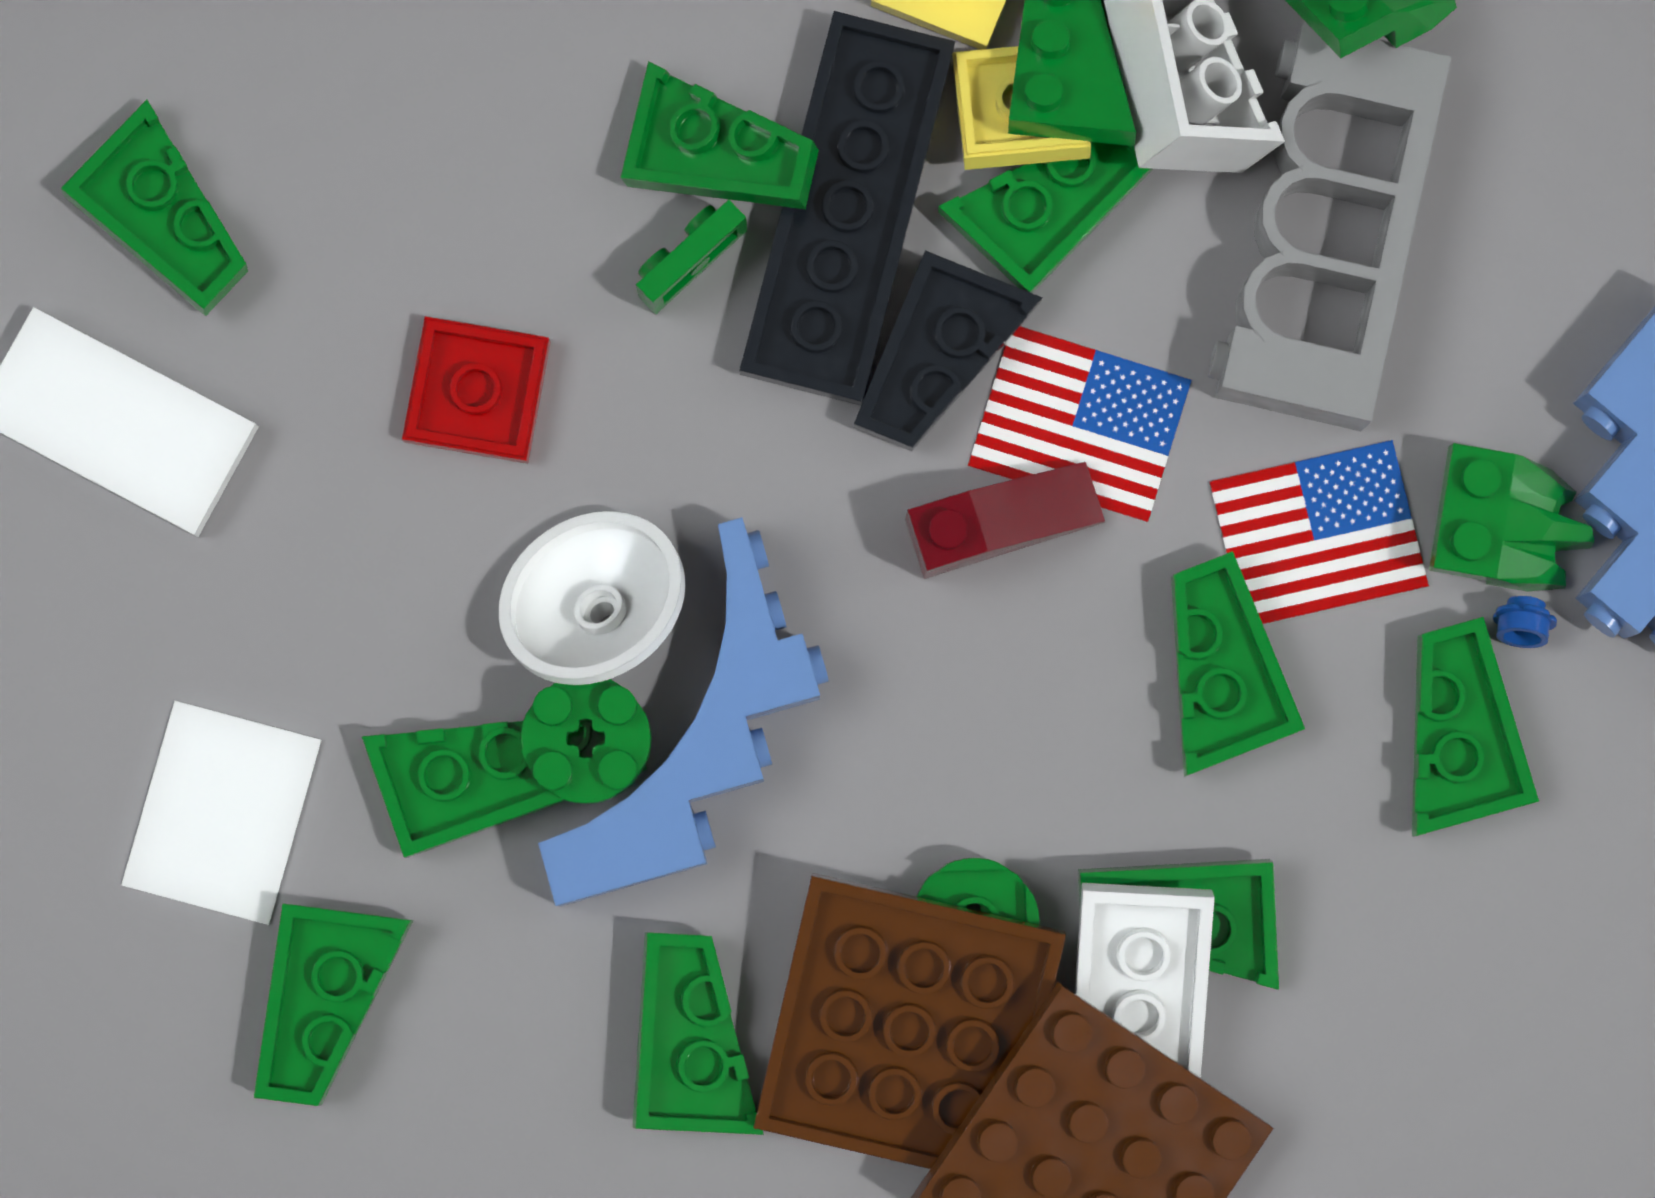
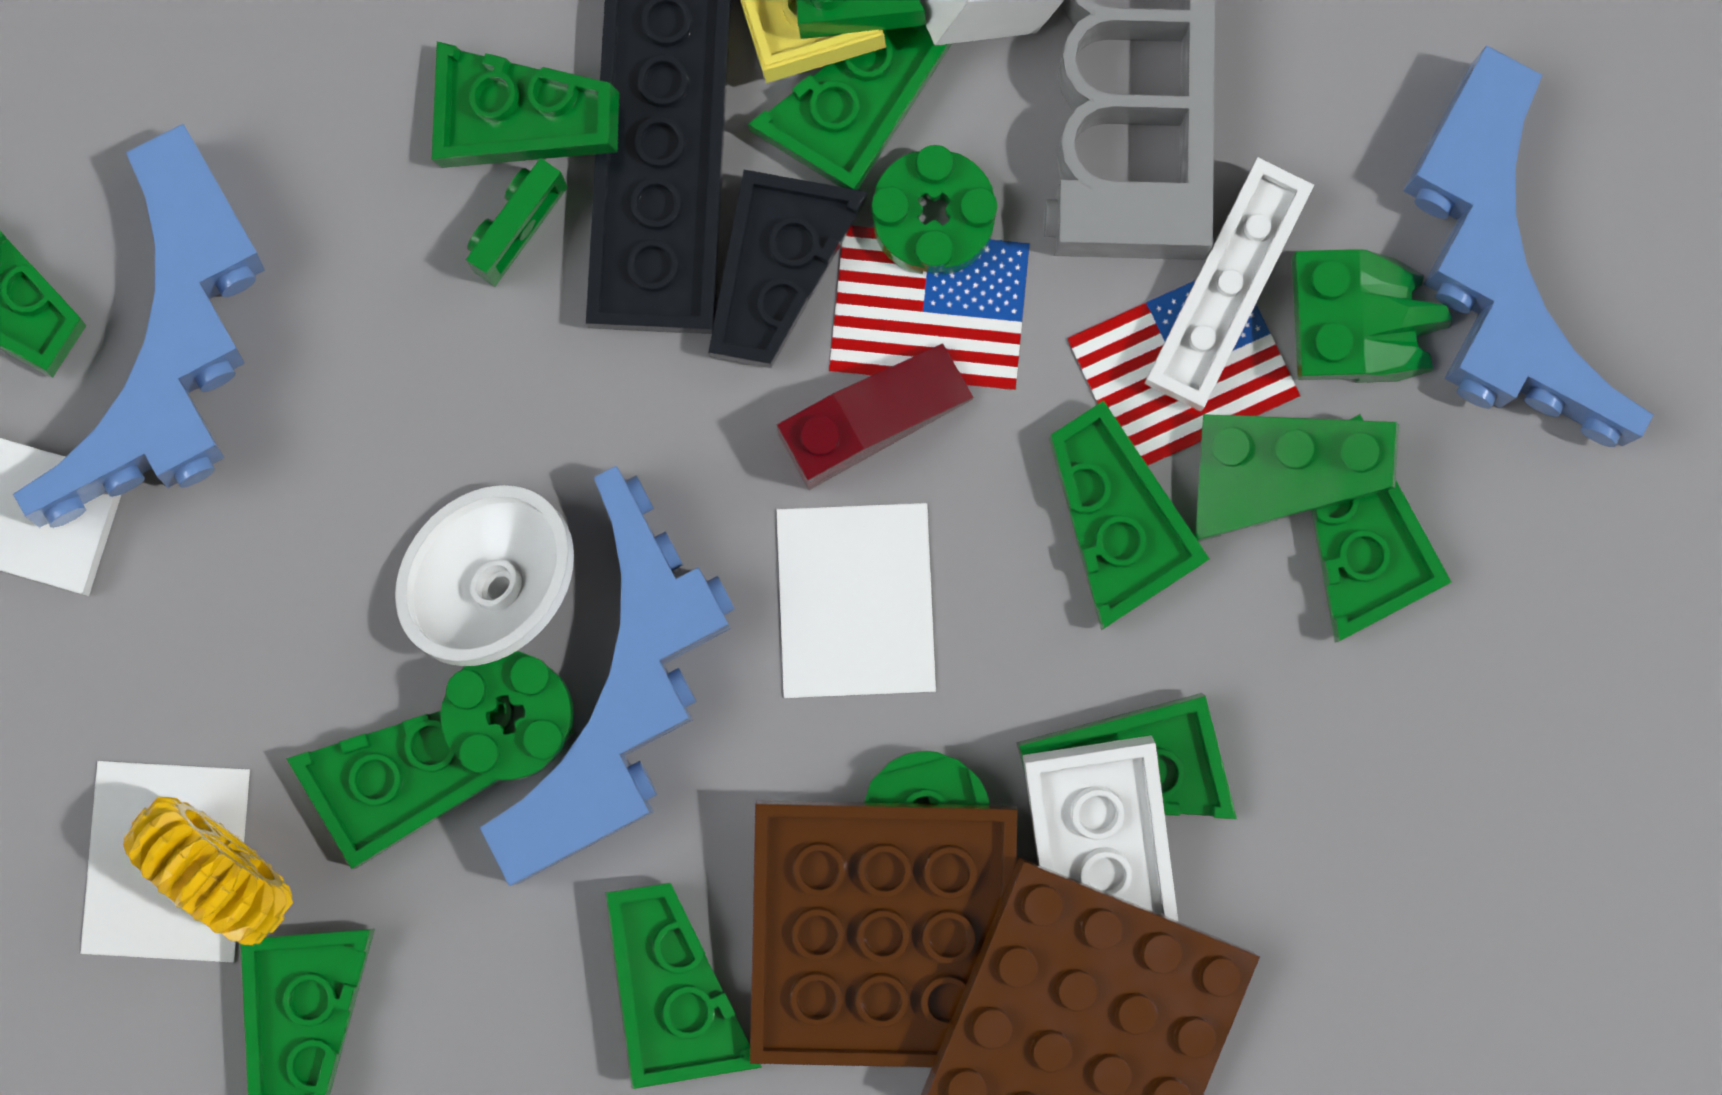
camera: 10 degrees left, 0 degrees up
(267, 830) = (207, 871): none -> yellow gear
(301, 380) = (185, 346): none -> medium blue arch
(476, 390) = (333, 395): red tile -> none
(948, 697) = (855, 600): none -> white sticker
(1112, 294) = (933, 175): none -> green plate
(1380, 462) = (1229, 284): none -> white plate
(1398, 653) = (1287, 466): none -> green wing
(1524, 622) = (1403, 406): blue plate -> none

